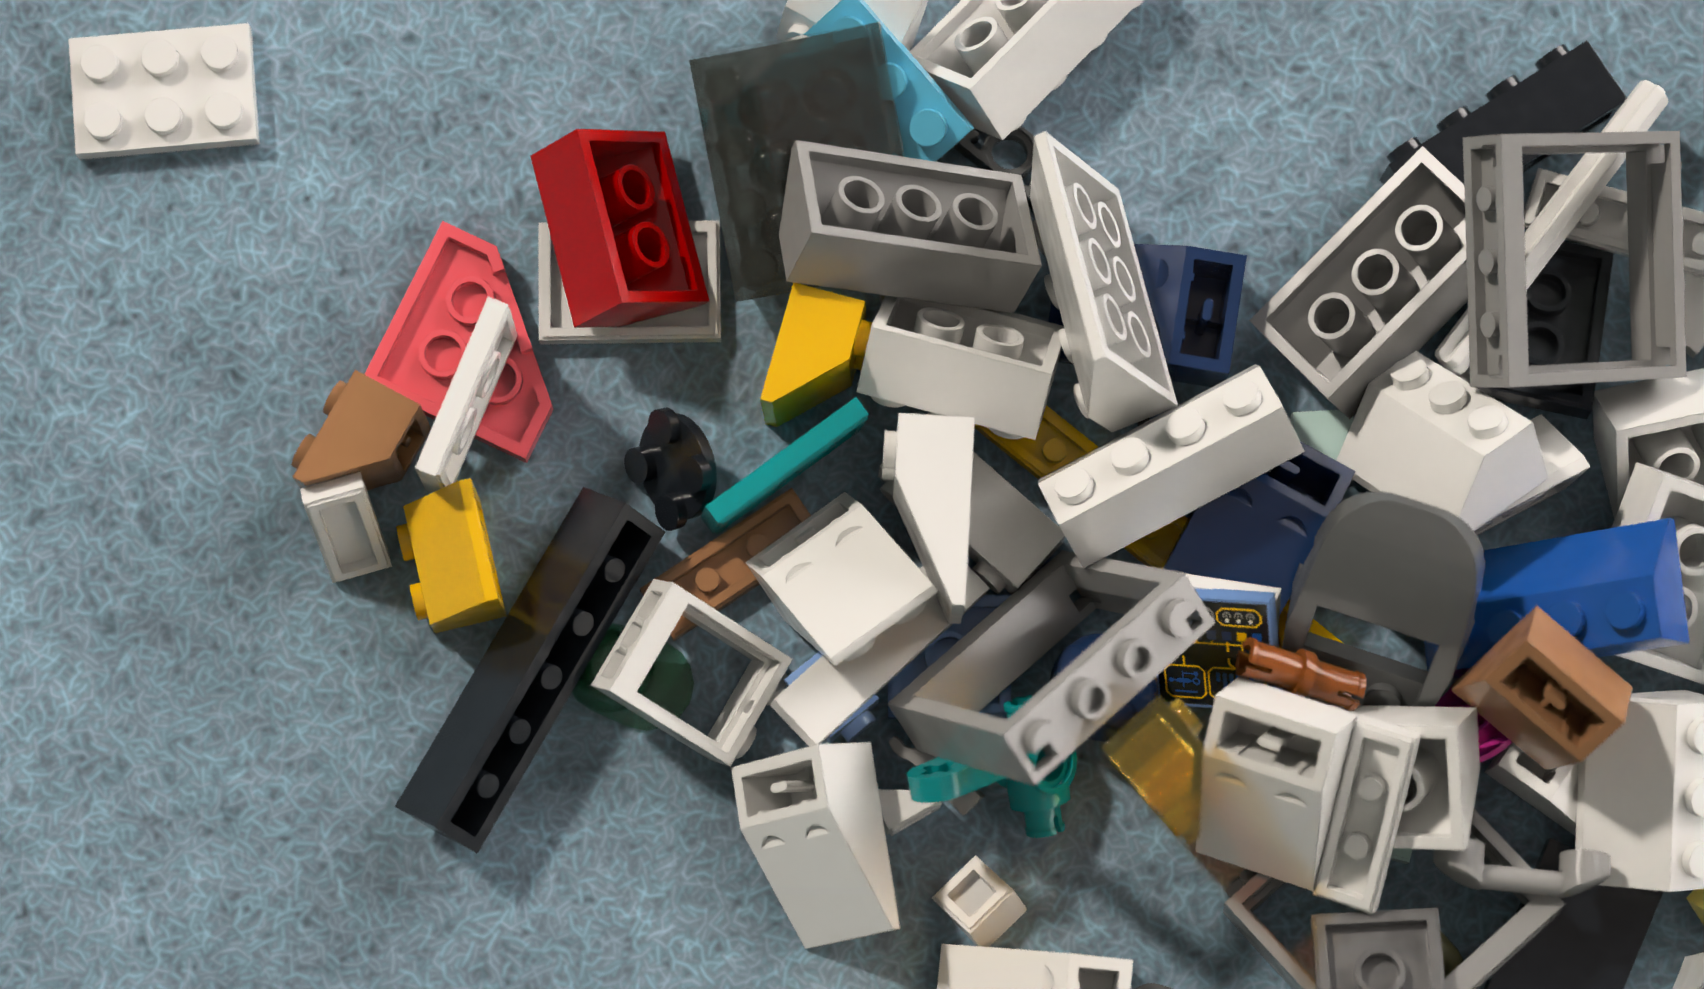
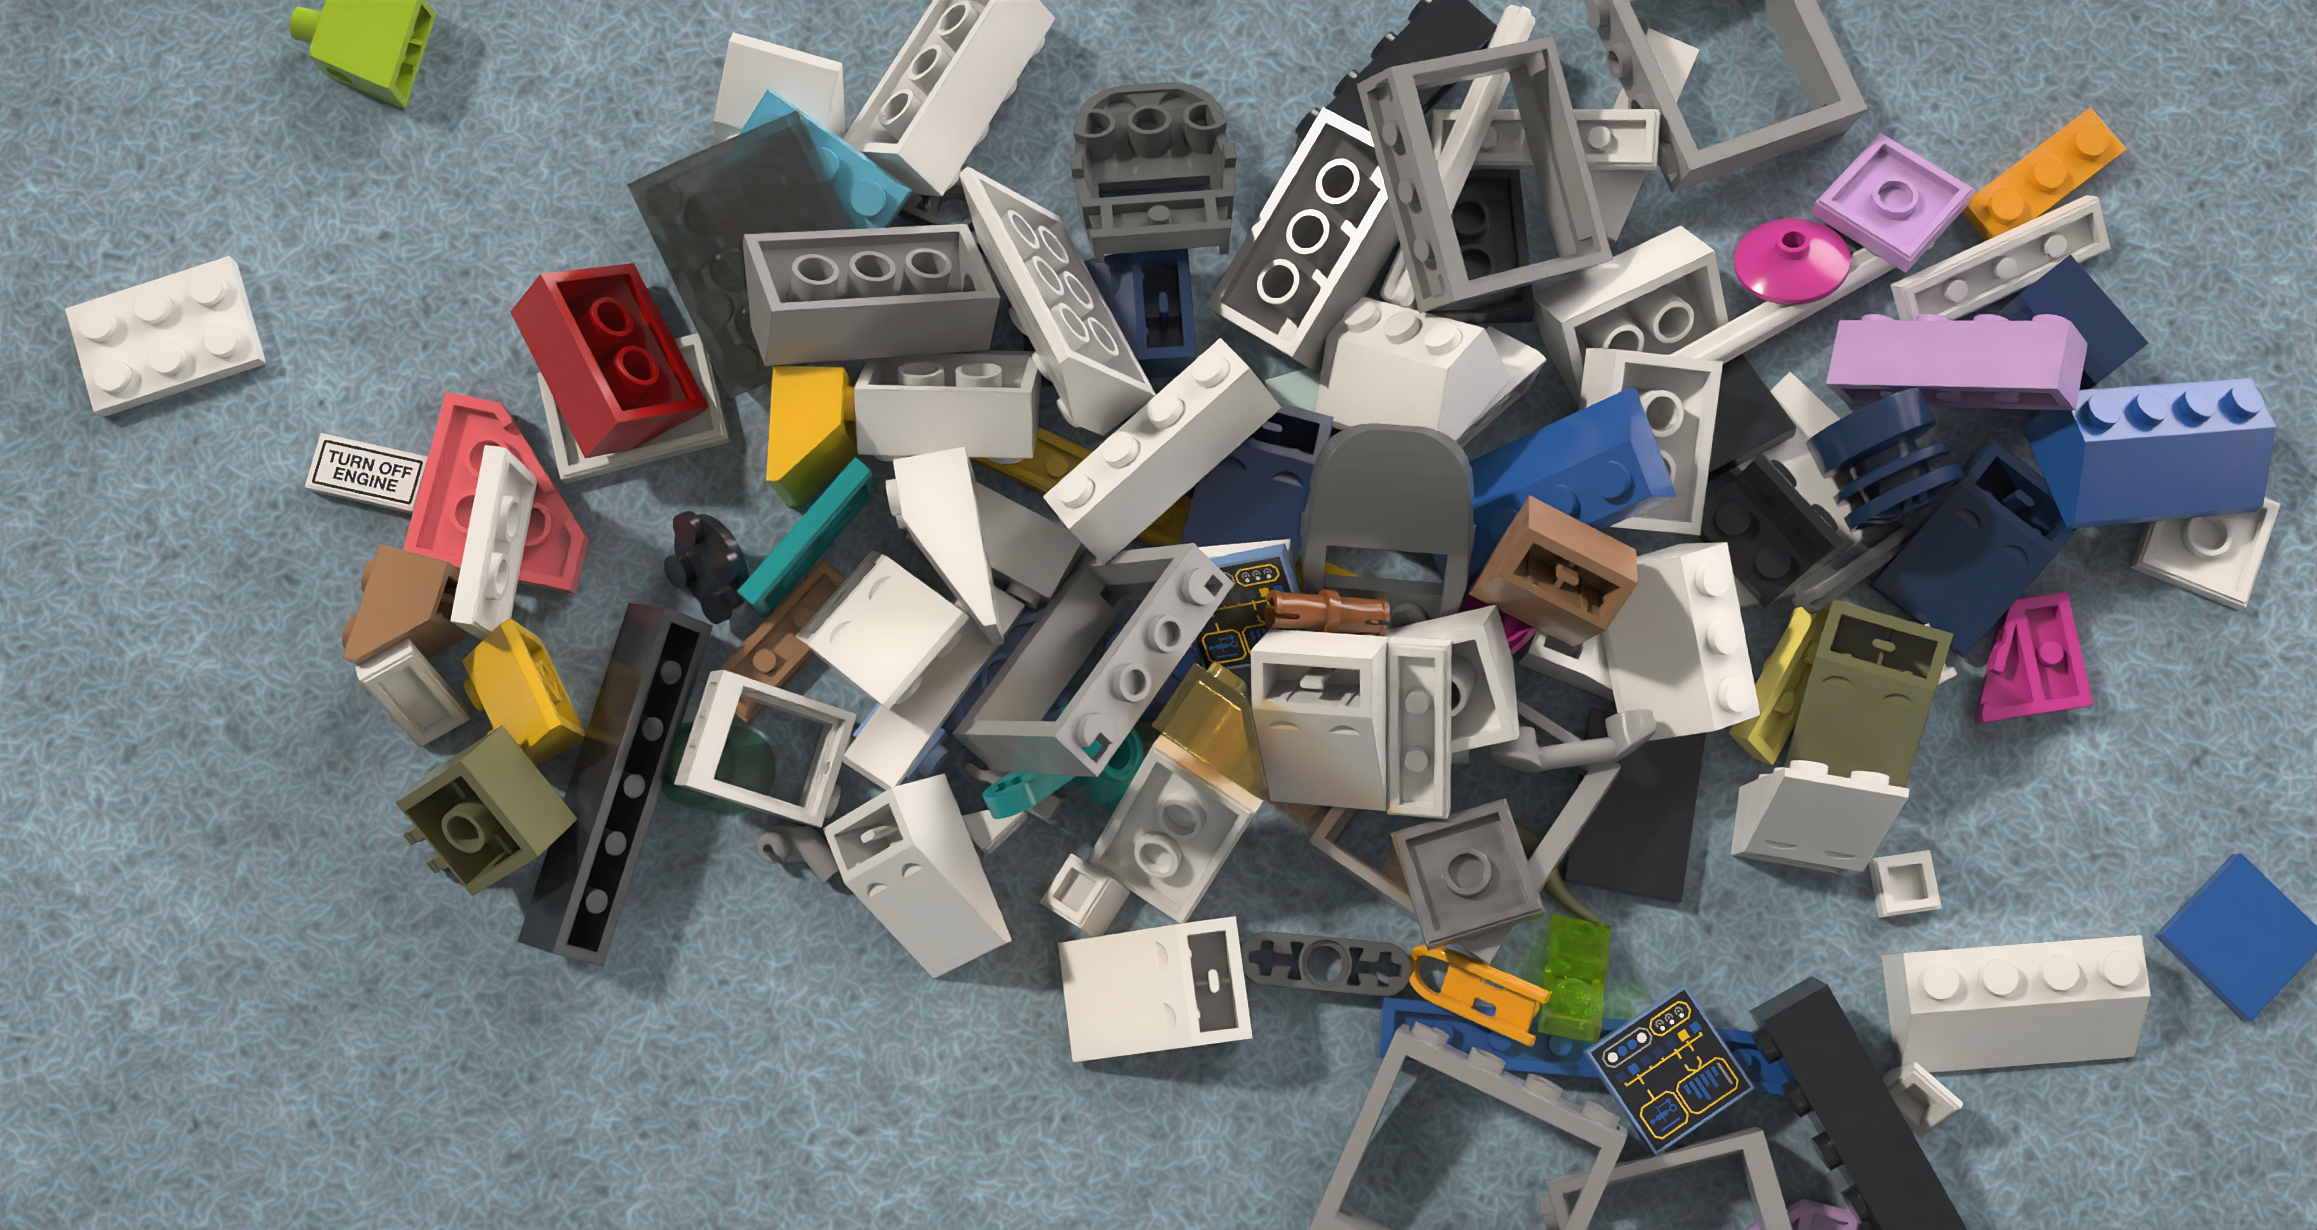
camera: 10 degrees left, 0 degrees up
(342, 286) = (366, 473): none -> white tile
(395, 668) = (485, 812): none -> olive hinge
(700, 778) = (799, 844): none -> light grey arm
(1089, 857) = (1173, 829): none -> white tile
(1235, 129) = (1153, 140): none -> dark grey slope

